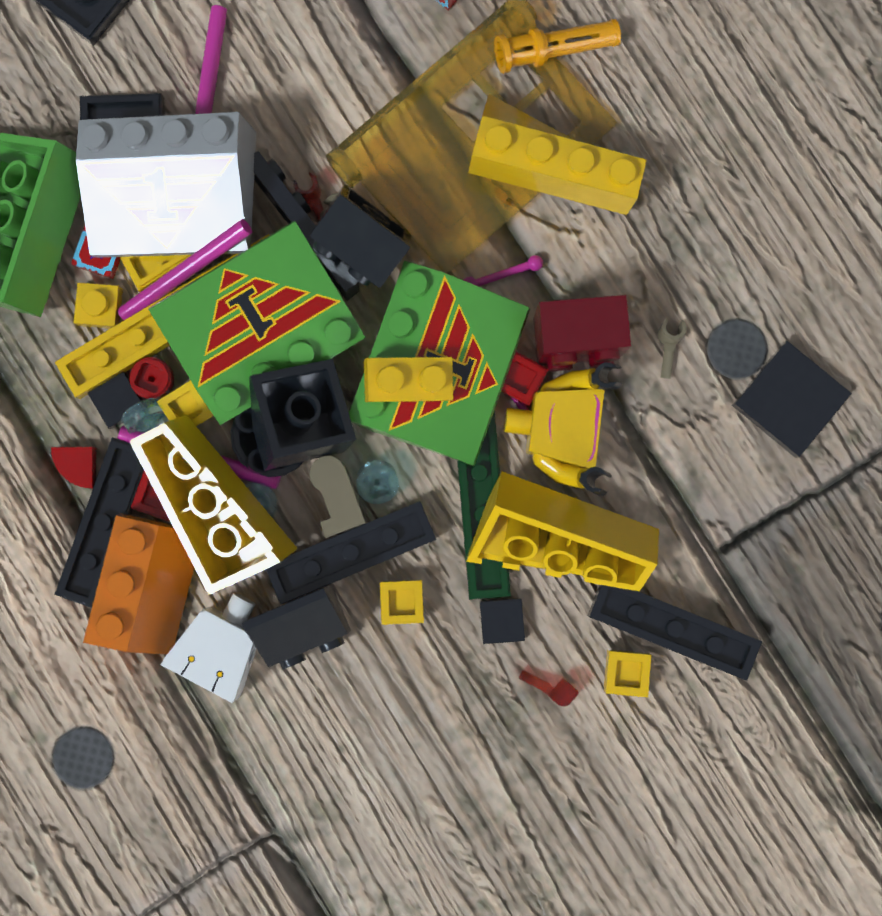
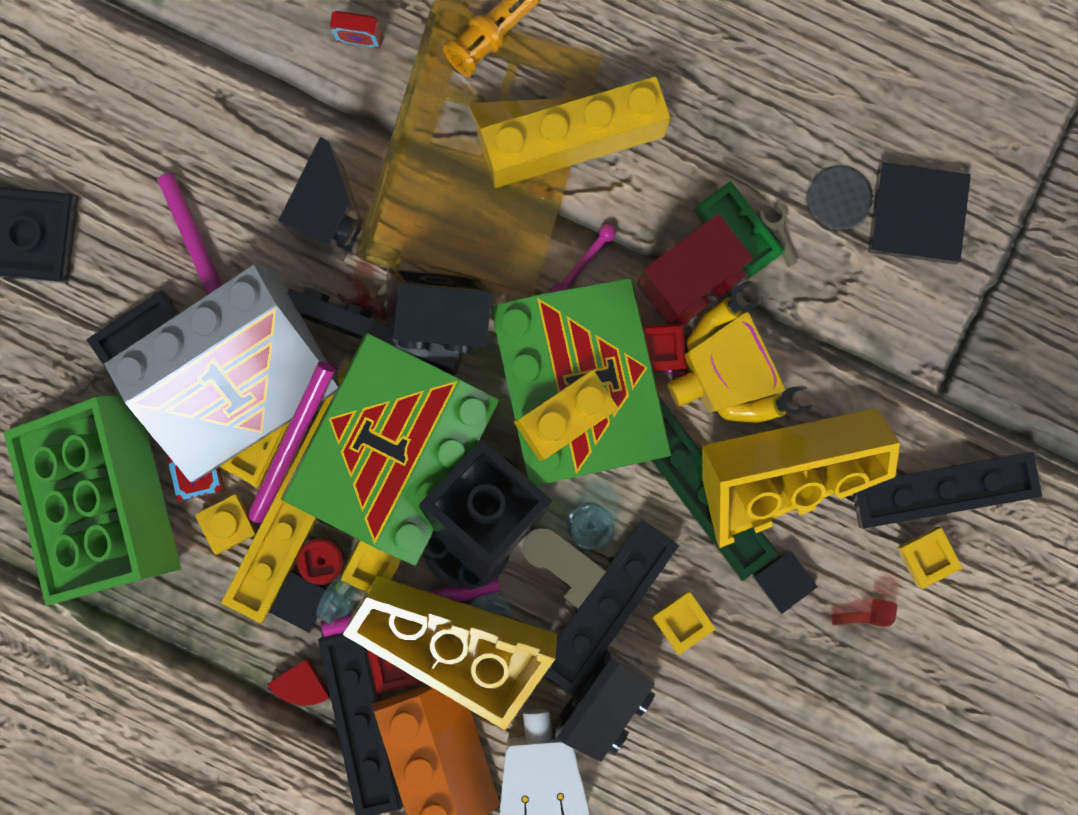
camera: 35 degrees left, 0 degrees up
(325, 101) = (323, 205): none -> black slope
(644, 324) = (744, 224): none -> green plate

